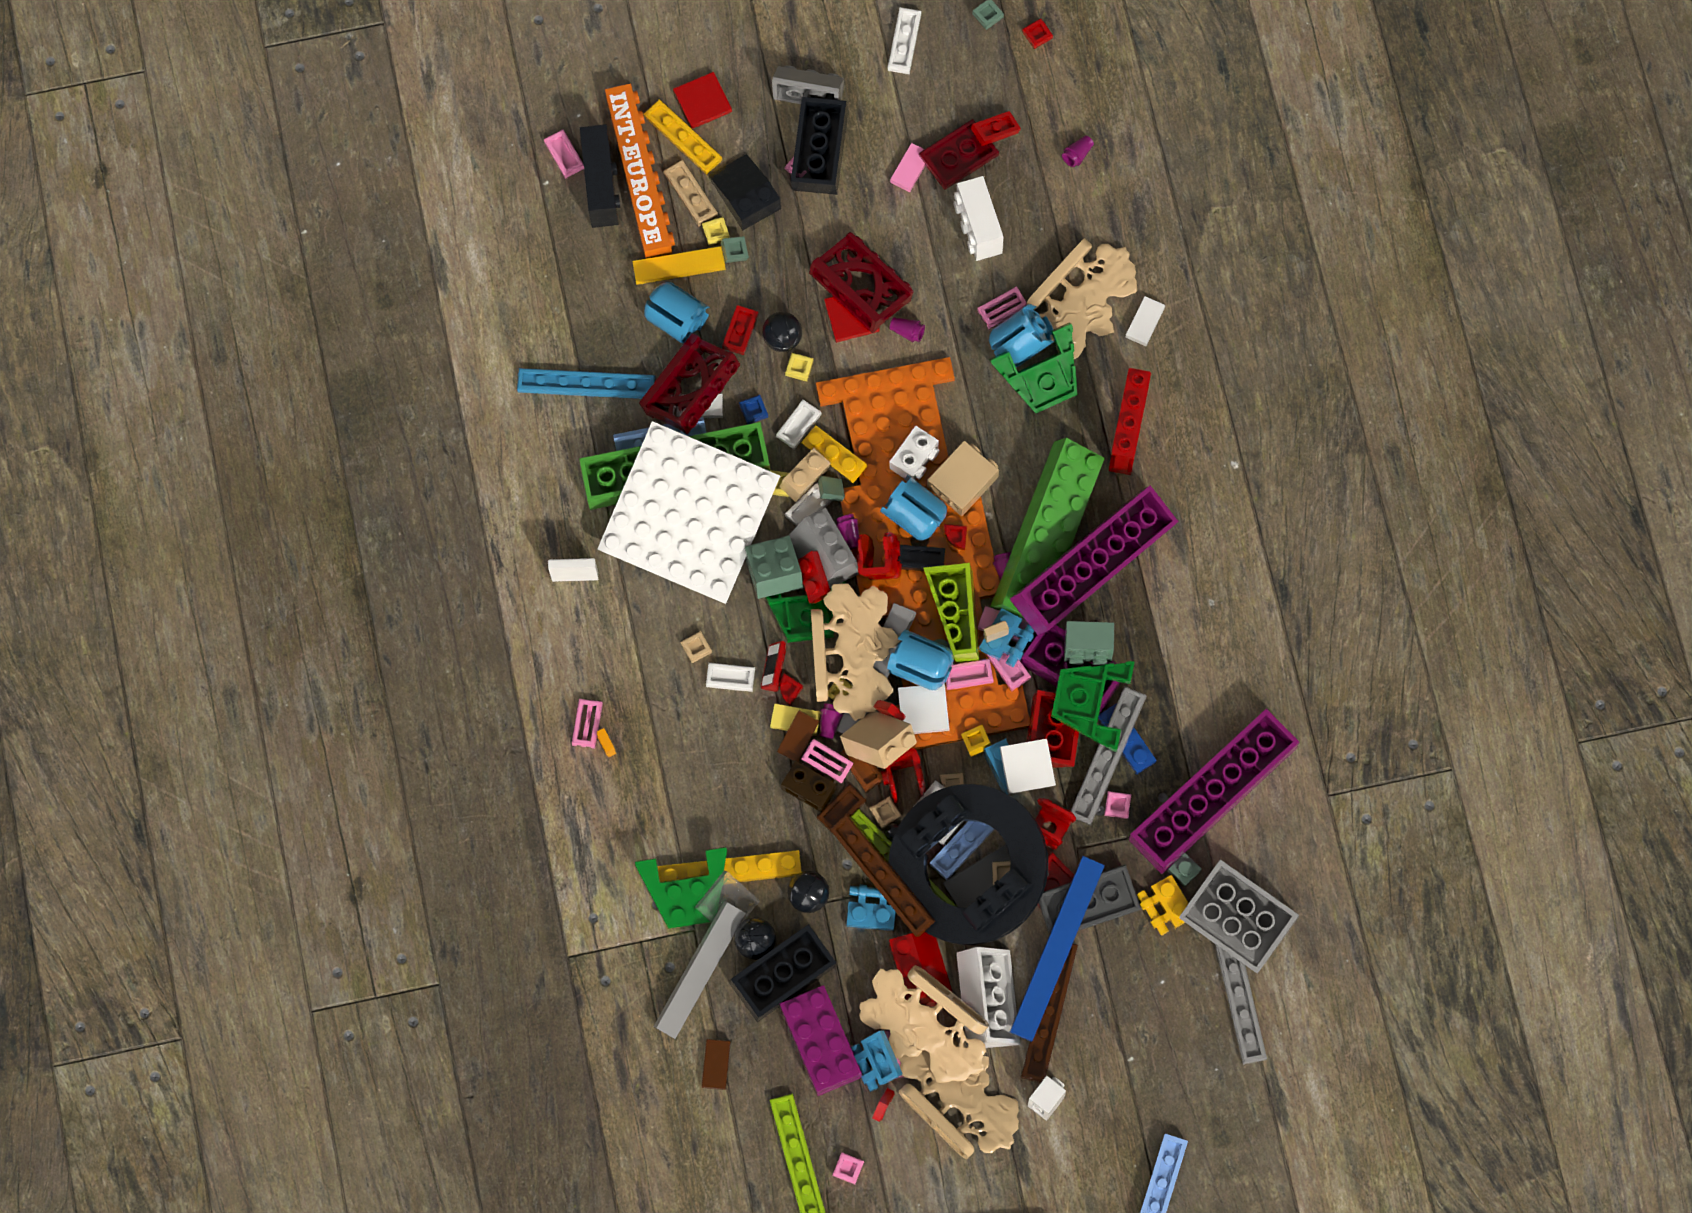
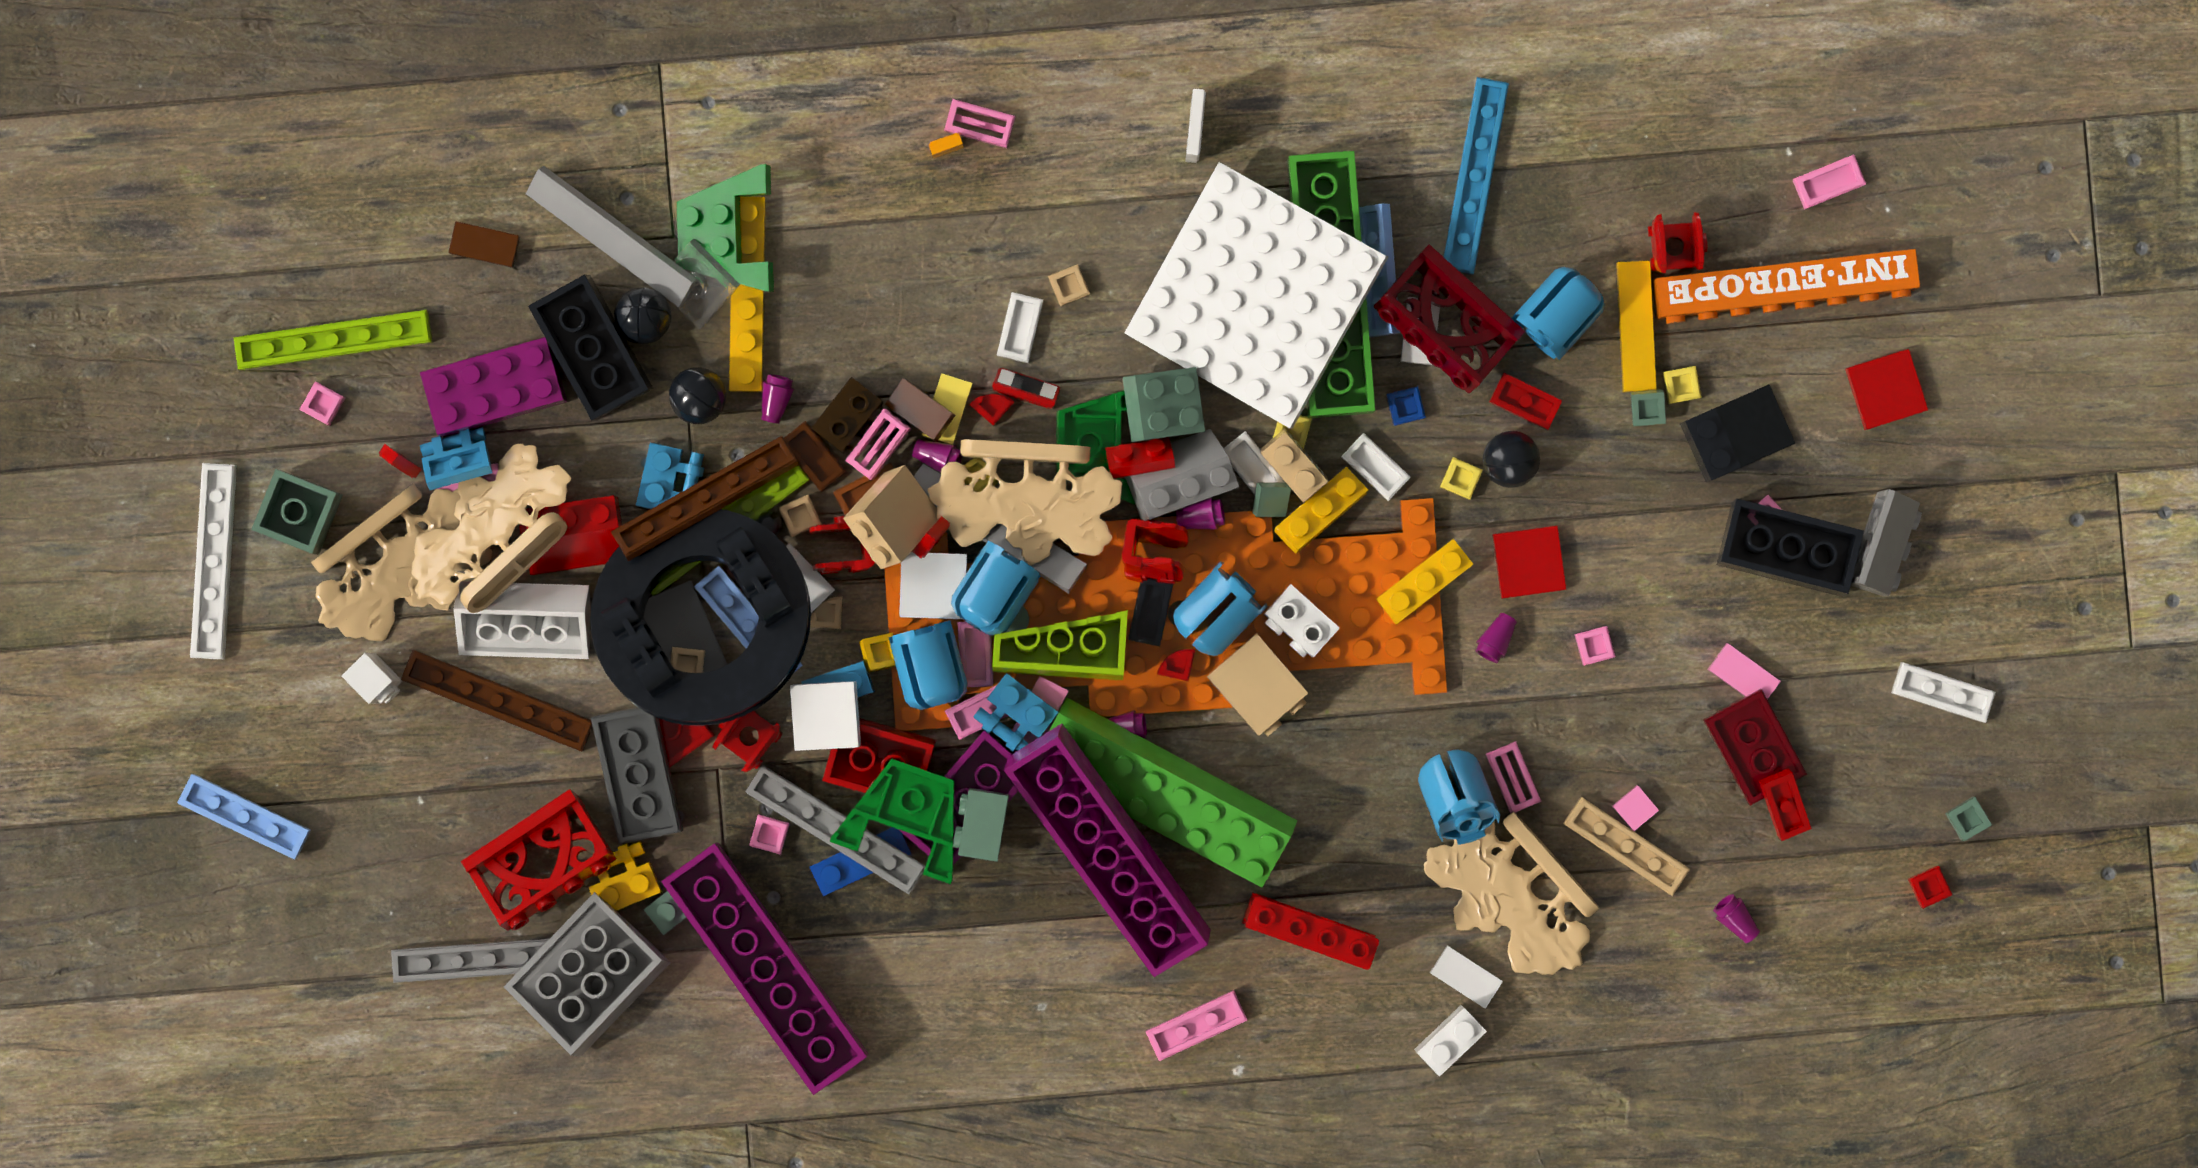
camera: 90 degrees right, 15 degrees up
(599, 176) = (1781, 226): black brick -> none
(619, 232) = (1690, 235): none -> red piece
(683, 137) = (1833, 354): yellow tile -> none
(690, 193) = (1745, 355): tan tile -> none
(802, 839) = (775, 397): none -> magenta cone
(867, 262) = (1528, 581): dark red fence -> none
(875, 378) = (1424, 581): none -> yellow plate
(904, 265) = (1594, 645): none -> bright pink tile
(931, 1171) = (297, 512): none -> sand green brick
(978, 218) = (1646, 760): white brick -> none
(981, 699) = (929, 666): none -> dark azure cylinder
(996, 631) = (1019, 698): tan tile -> none
(1012, 226) = (1635, 808): none -> bright pink tile
(1039, 229) = (1626, 846): none -> tan tile
(1046, 381) = (1389, 823): green wing -> none
(1057, 948) = (574, 721): blue tile -> none
(1129, 954) = (495, 853): none -> red fence
(1191, 324) = (1450, 1040): none -> white brick
(1207, 495) = (1196, 1025): none -> bright pink tile

